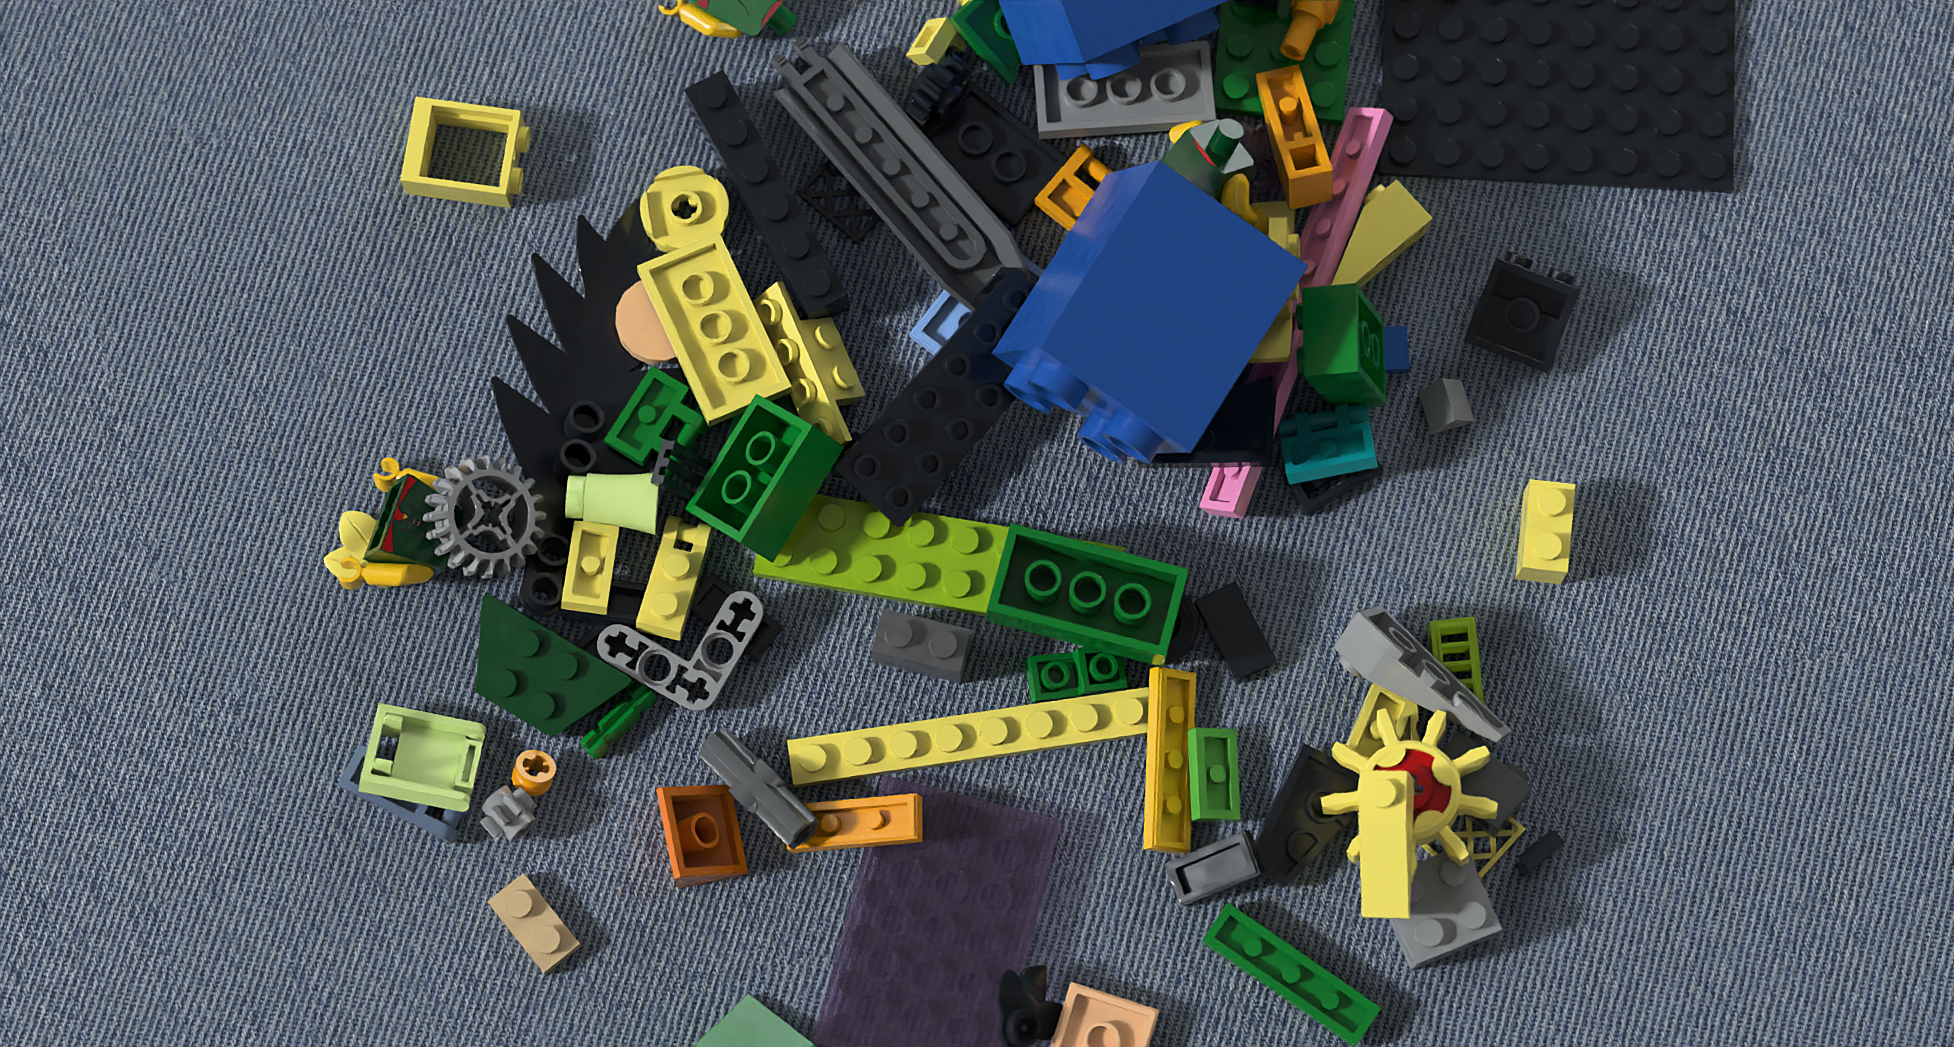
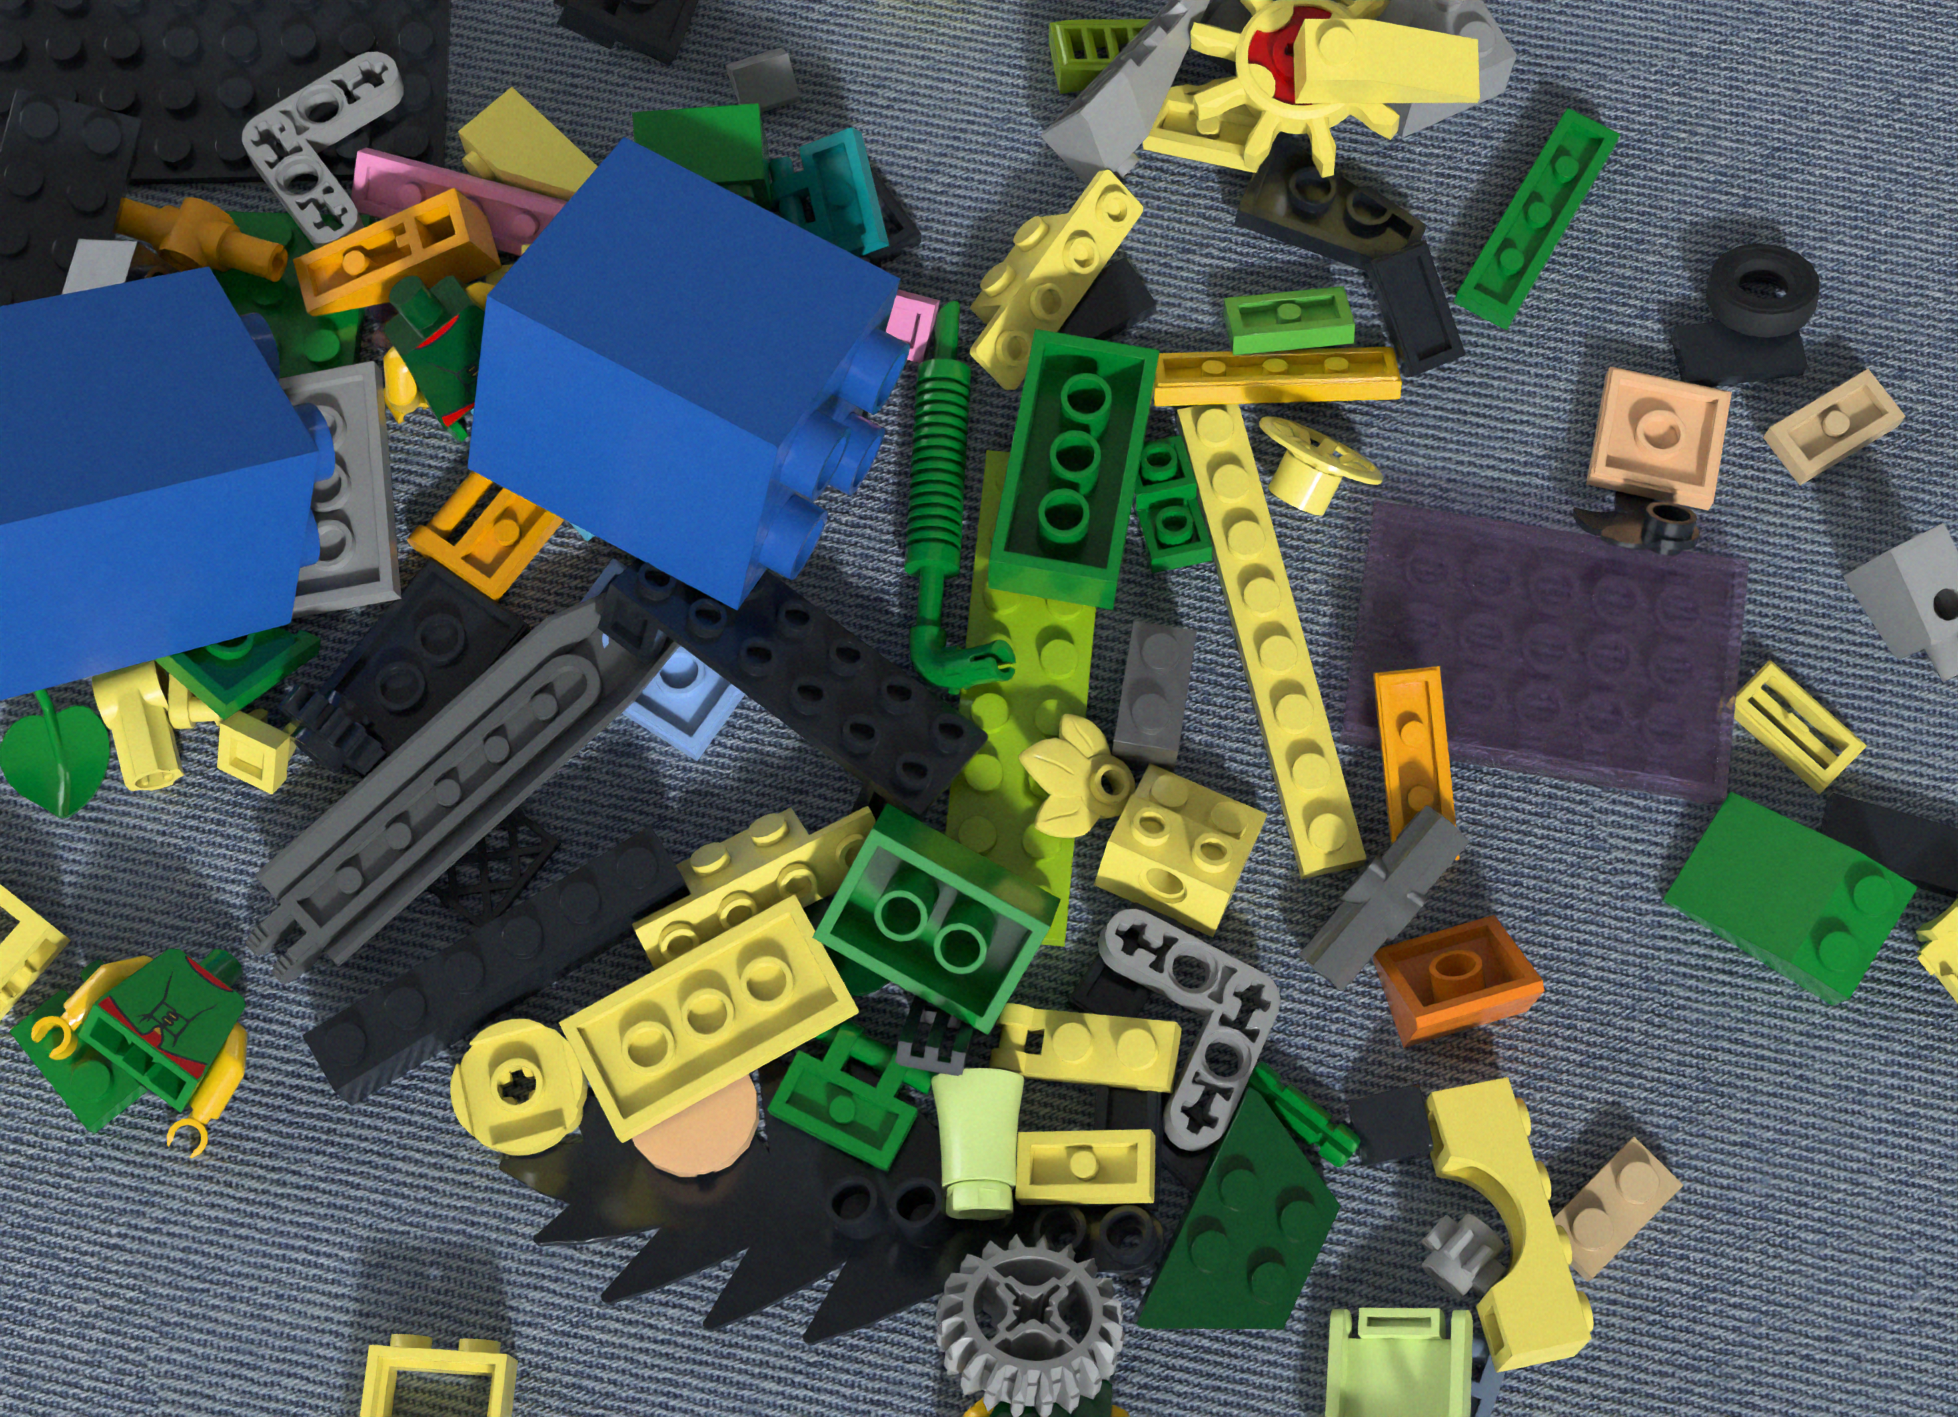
camera: 95 degrees left, 5 degrees down
(466, 848) = (1484, 1143): none -> light yellow arch
(538, 761) = (1382, 1211): light orange bush -> none
(604, 781) = (1391, 1126): none -> black slope
(812, 656) = (1179, 849): none -> light yellow brick
(867, 582) = (1072, 776): none -> light yellow plate
(1078, 508) = (937, 514): none -> green piece
(1088, 776) = (1311, 473): none -> light yellow wheel
(1258, 599) = (1048, 275): none -> light yellow bracket
(1402, 73) = (304, 139): none -> light grey beam

